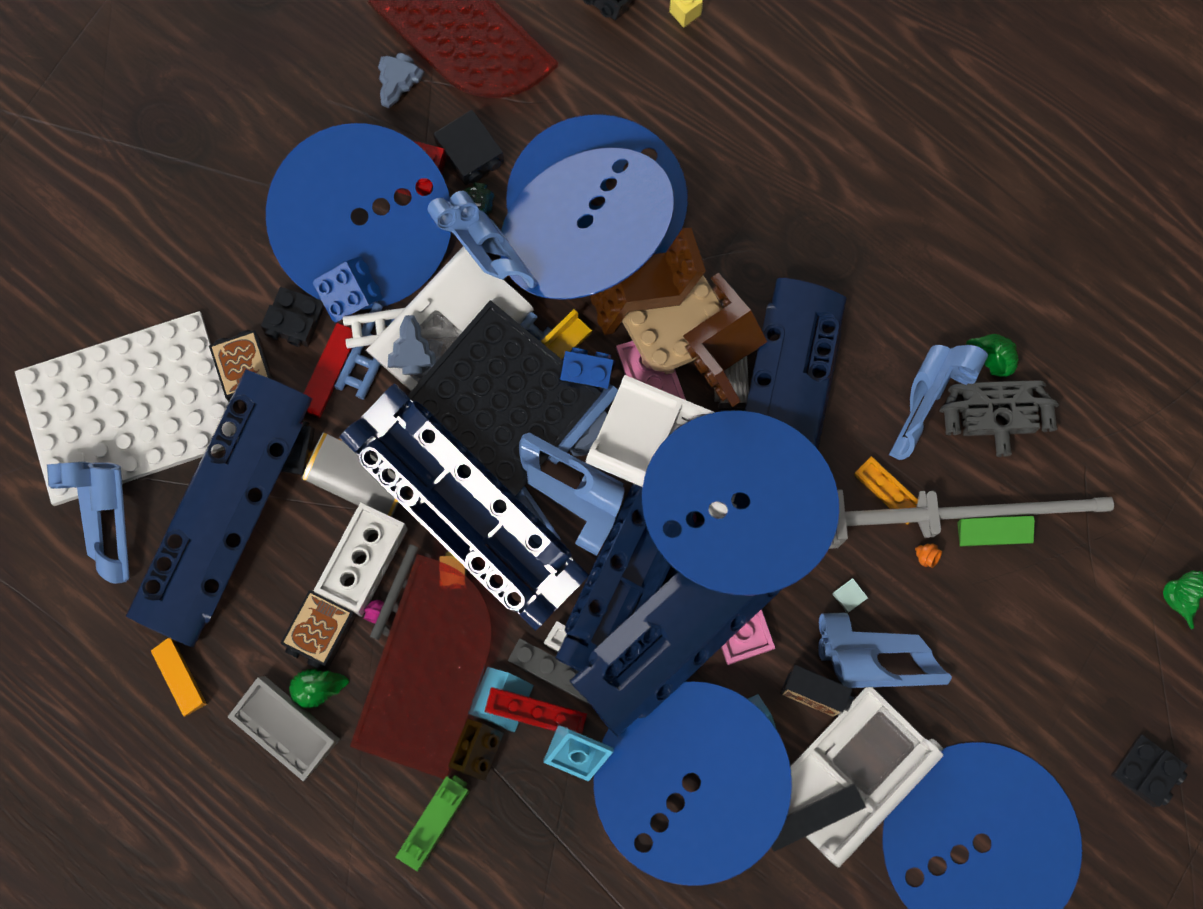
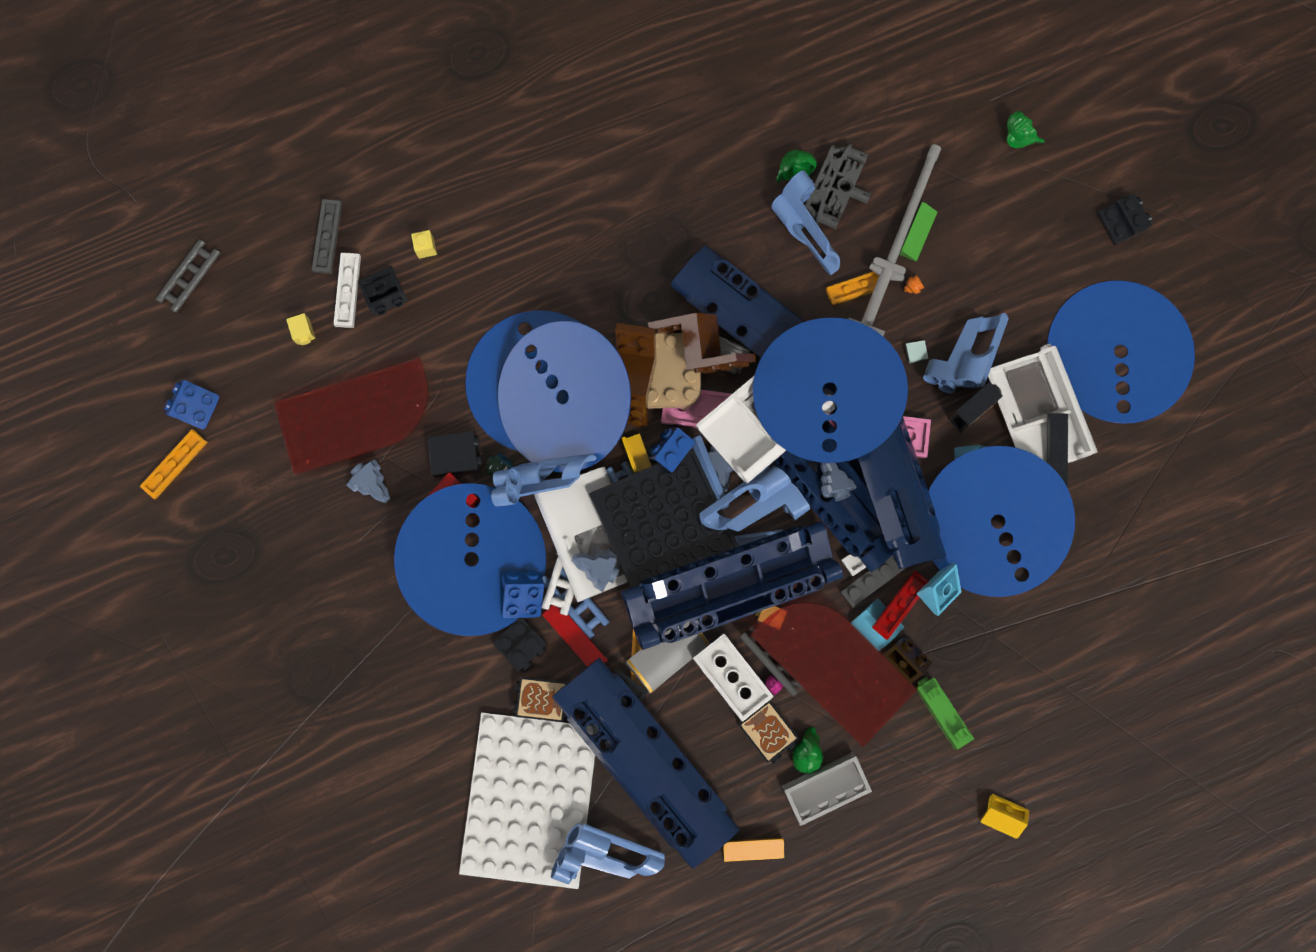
camera: 60 degrees left, 5 degrees up
(639, 566) = (835, 482): none -> sand blue rock

